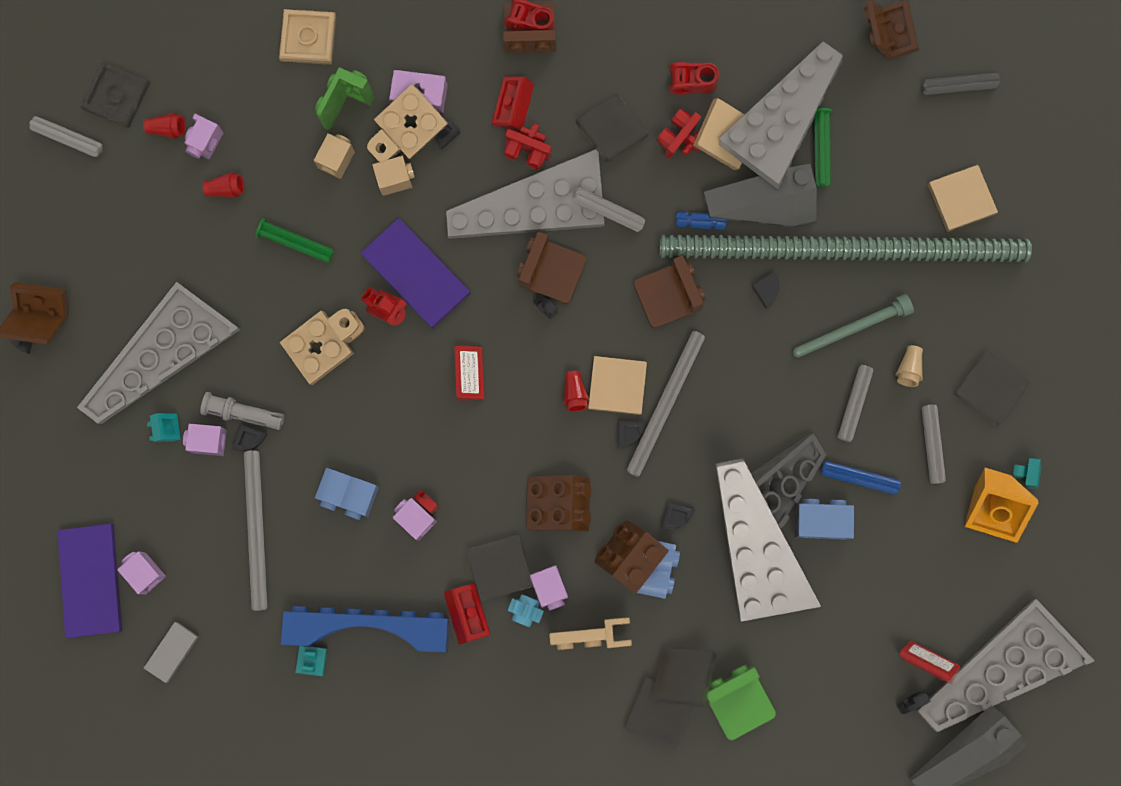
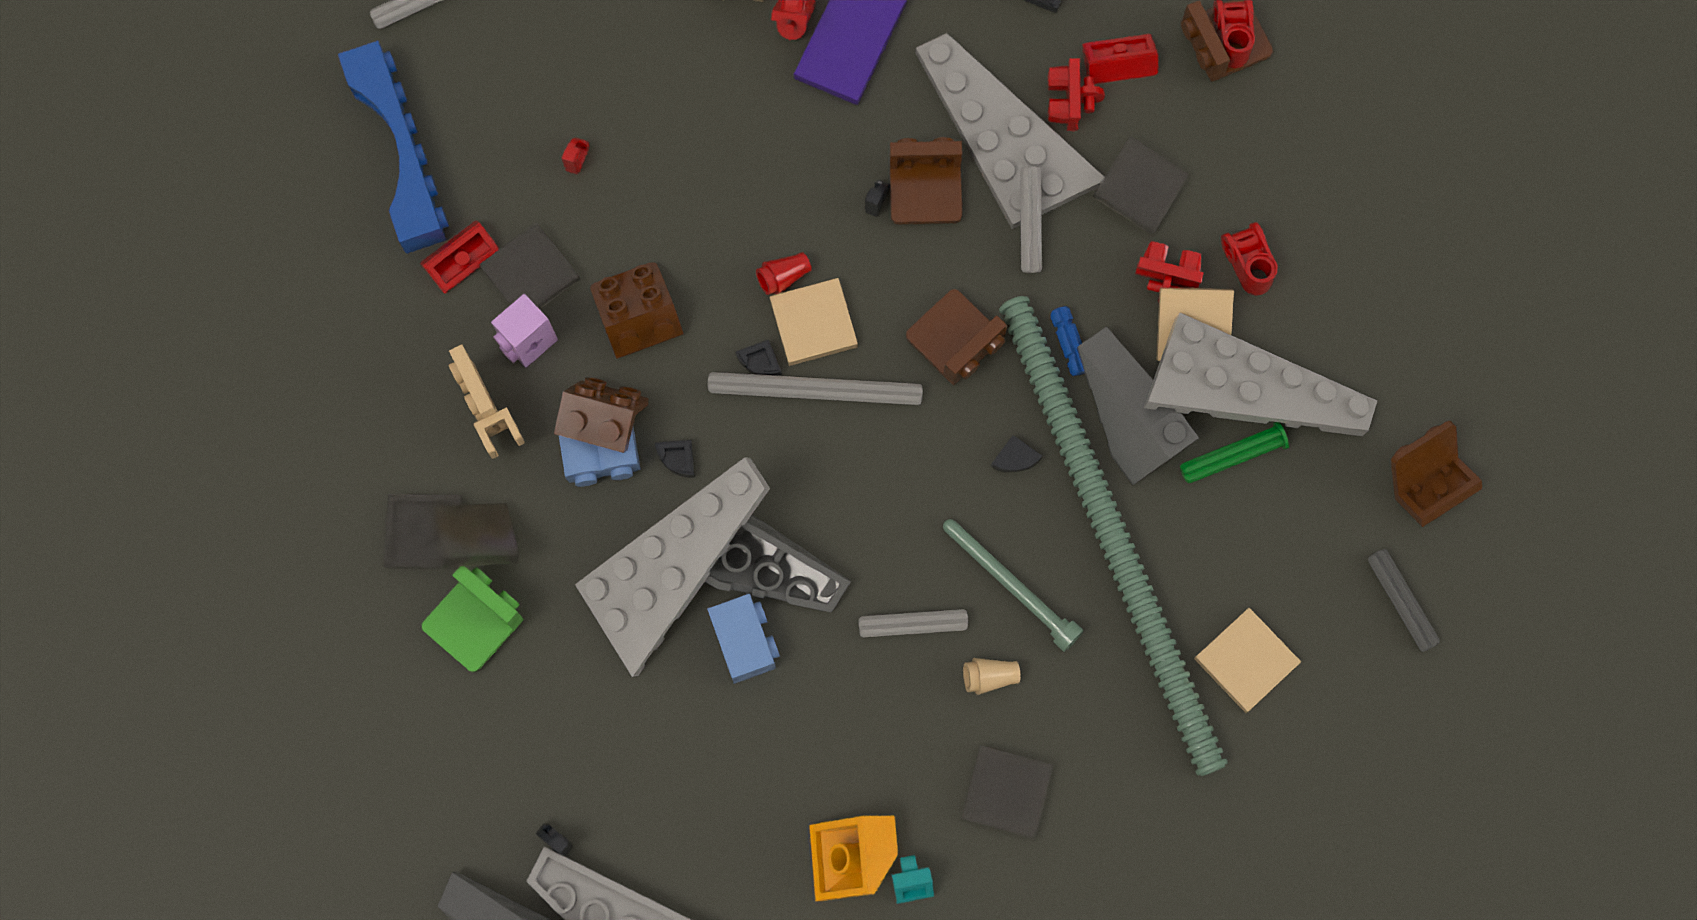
camera: 65 degrees right, 5 degrees down
(311, 660) = (335, 103): teal tile -> none
(347, 493) = (549, 58): medium blue brick -> none
(413, 518) = (547, 147): lavender brick -> none
(469, 373) = (755, 139): slope -> none
(525, 610) = (481, 315): medium azure gear -> none
(860, 477) = (818, 666): blue axle -> none
(929, 662) = (612, 838): slope -> none
(933, 444) = (901, 743): light grey axle -> none

